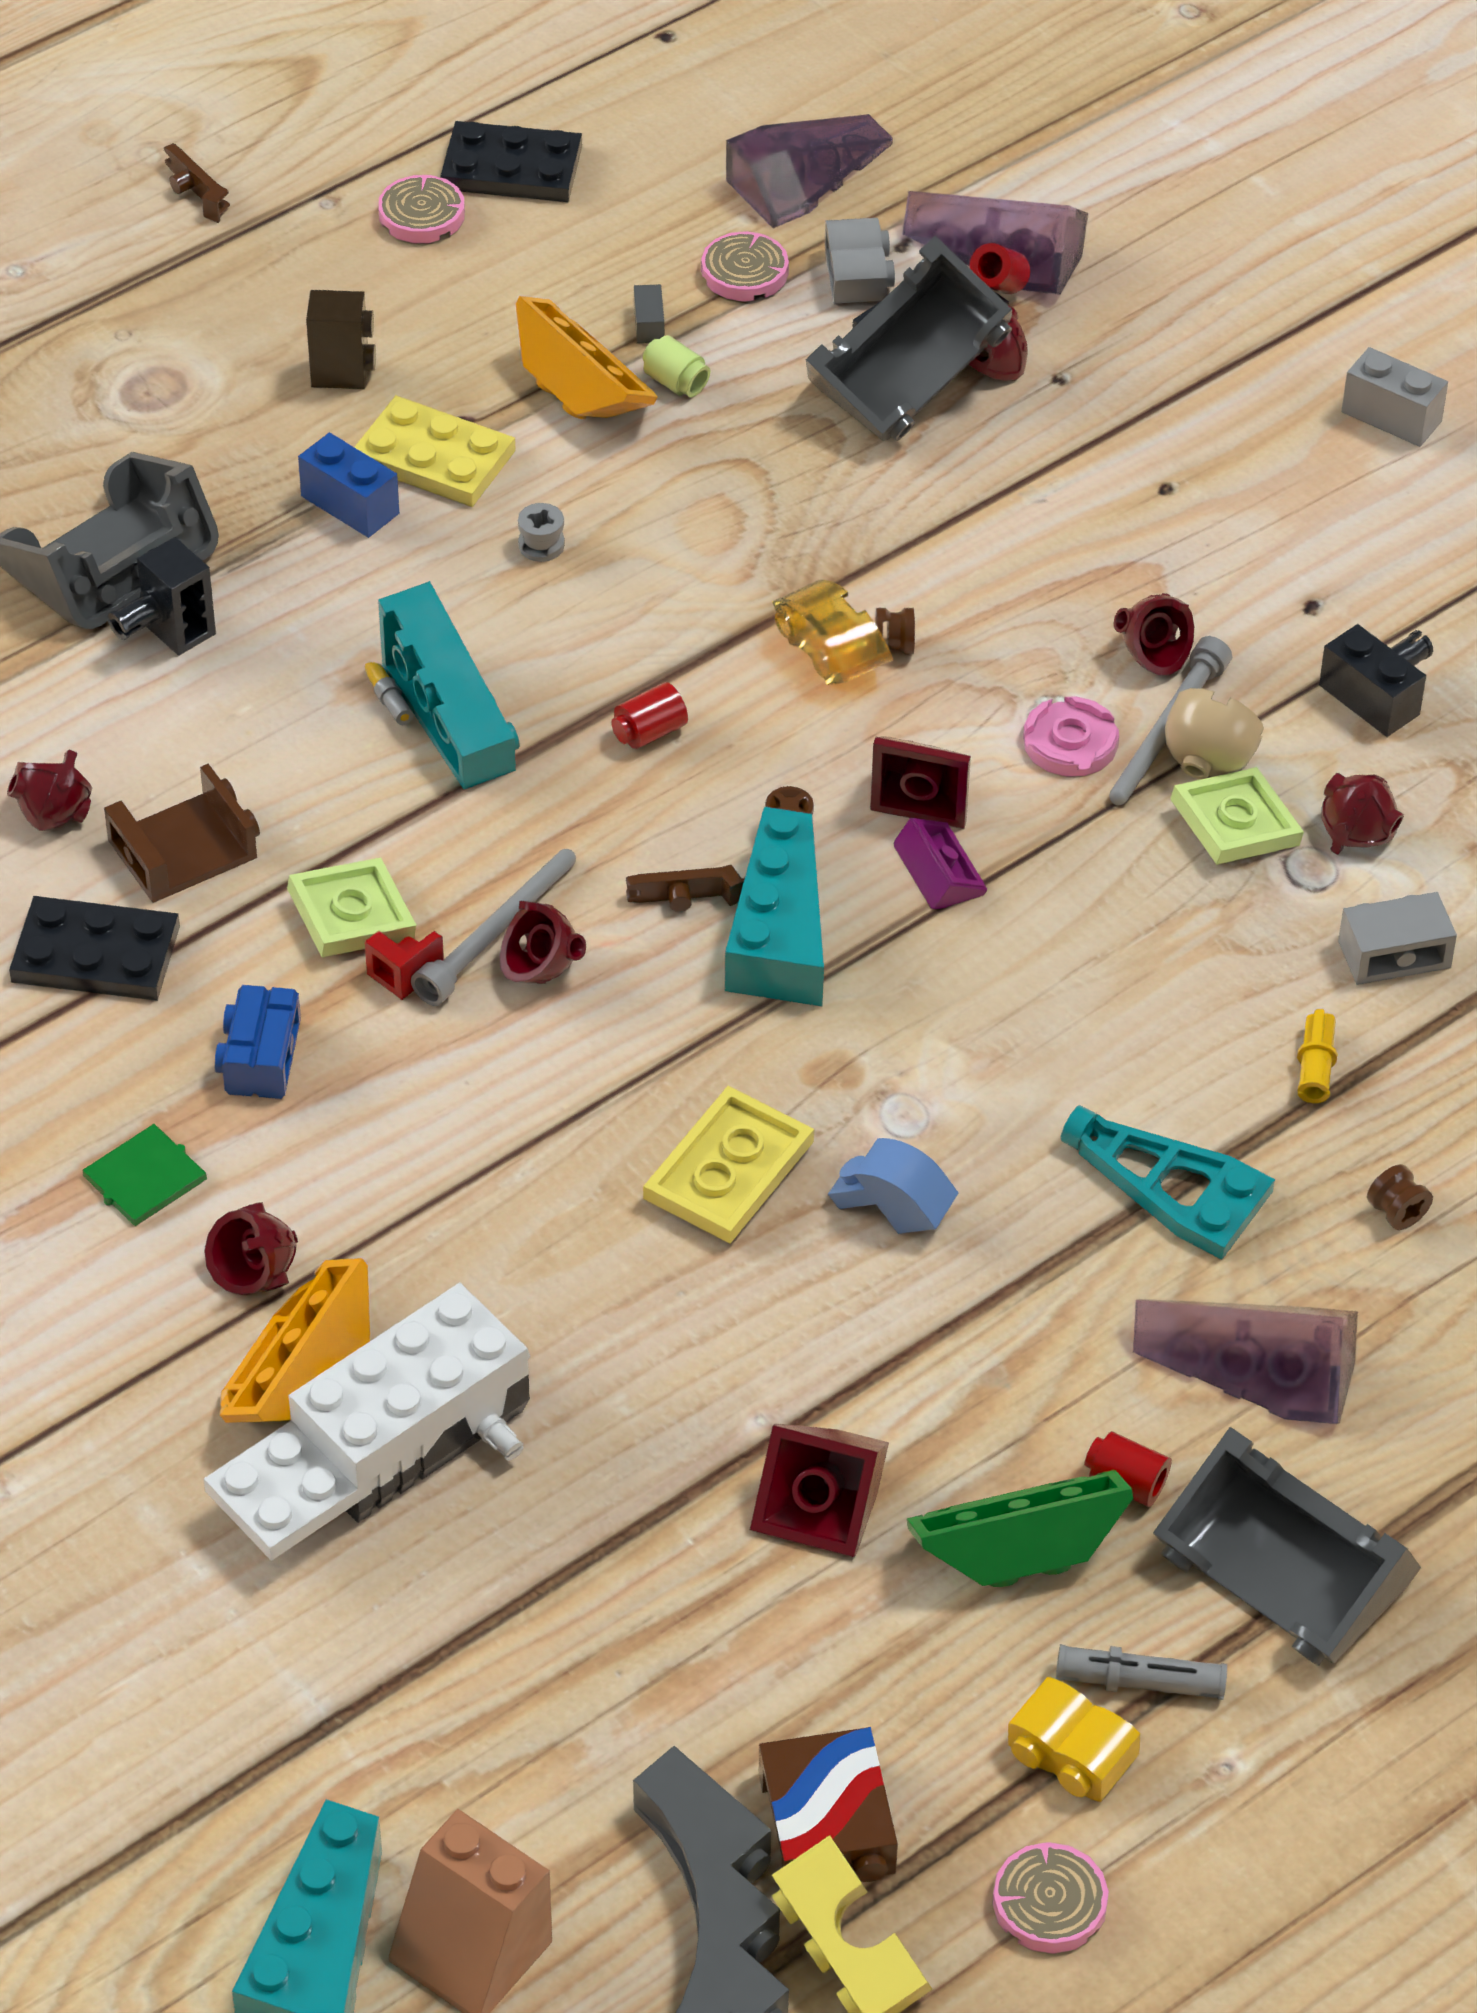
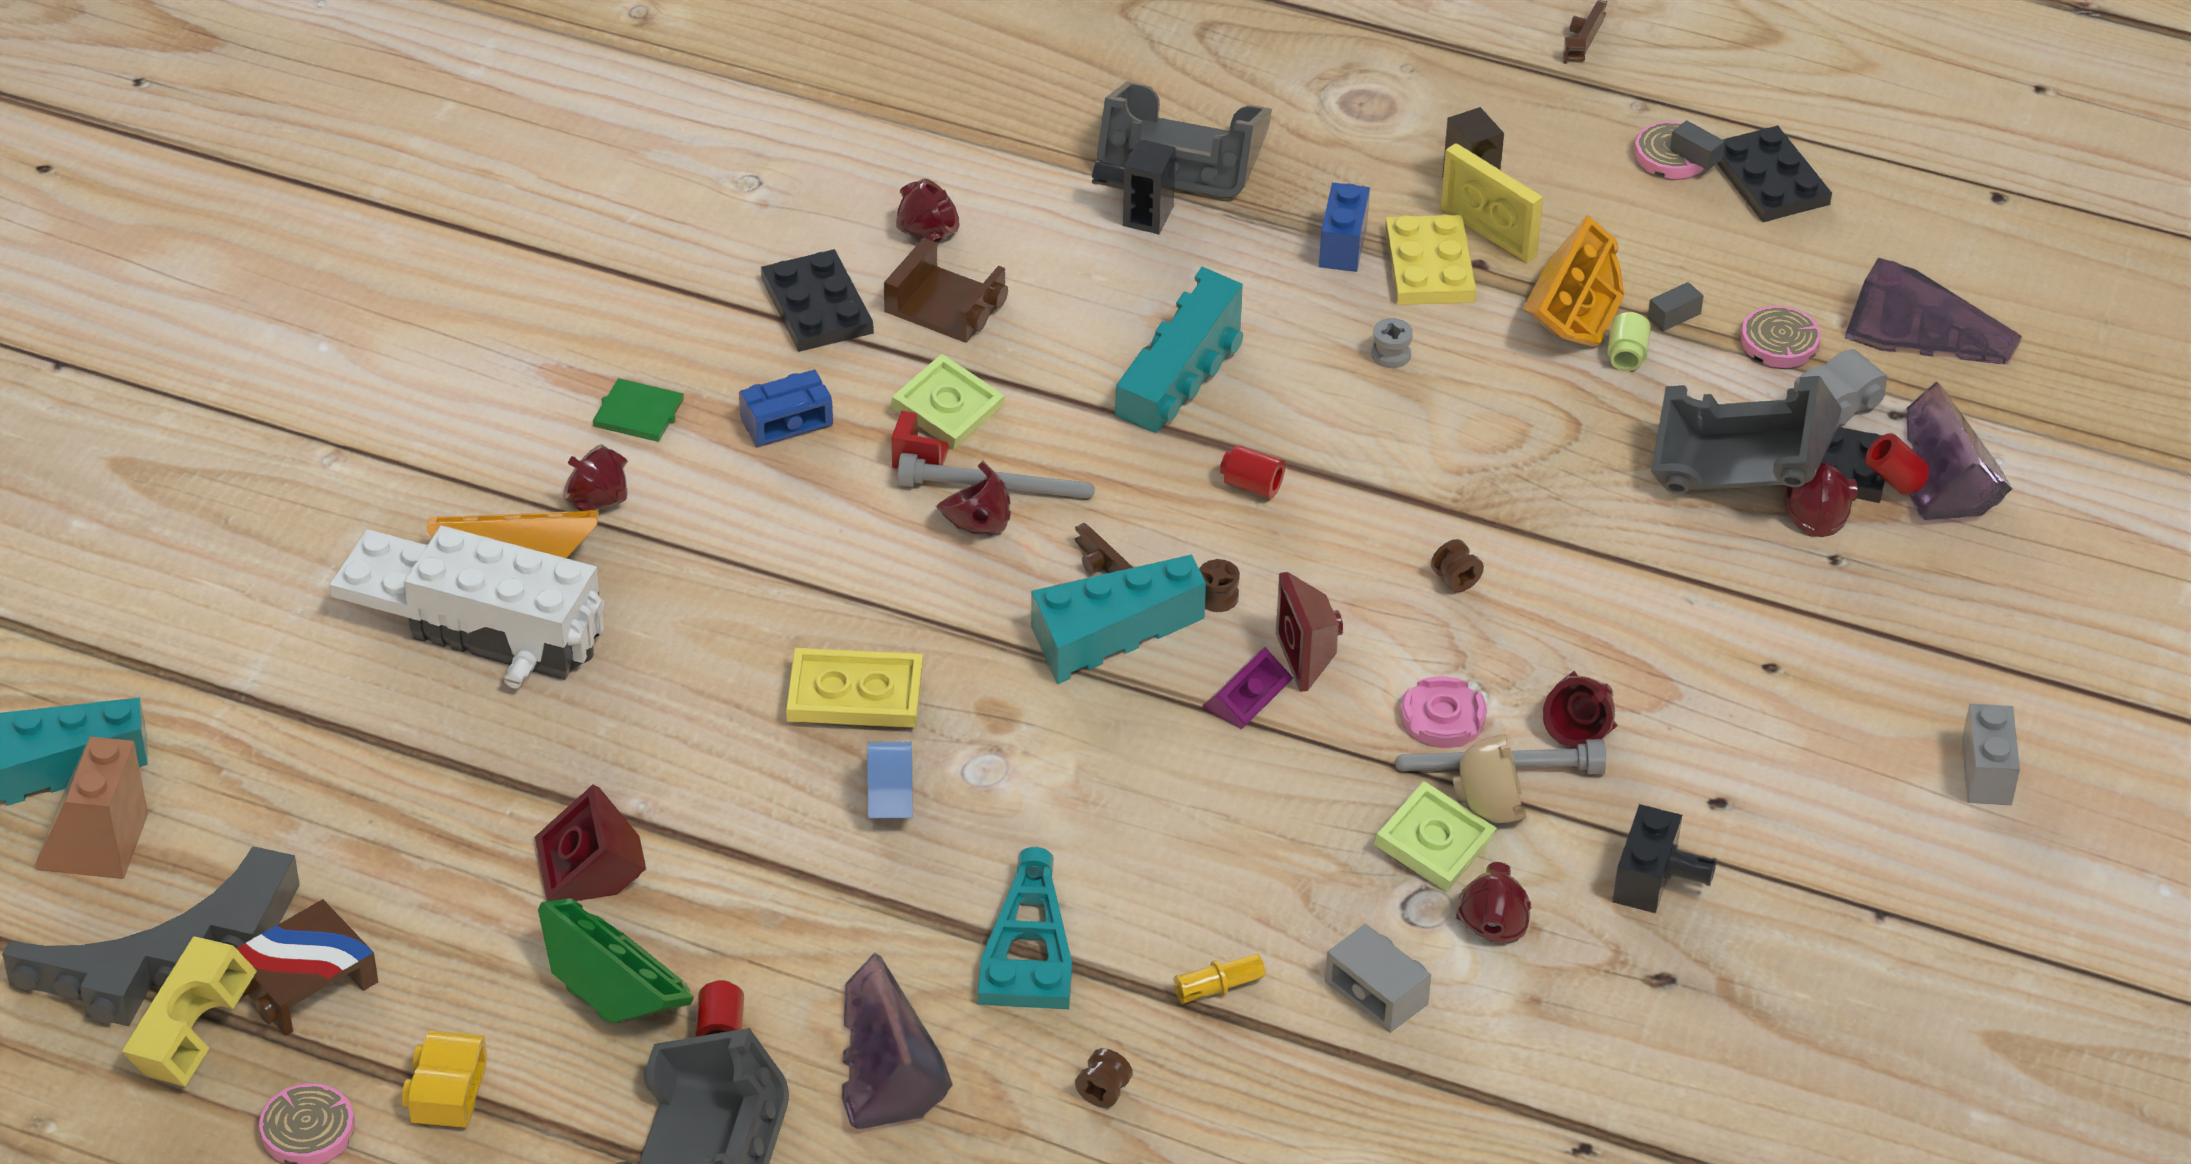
camera: 60 degrees right, 5 degrees down
(420, 359) = (1491, 202): none -> light yellow plate
(448, 184) = (1697, 145): none -> dark grey piece
(831, 631) = (1418, 528): clear yellow brick -> none
(1141, 1672) = (520, 1058): light grey pin -> none

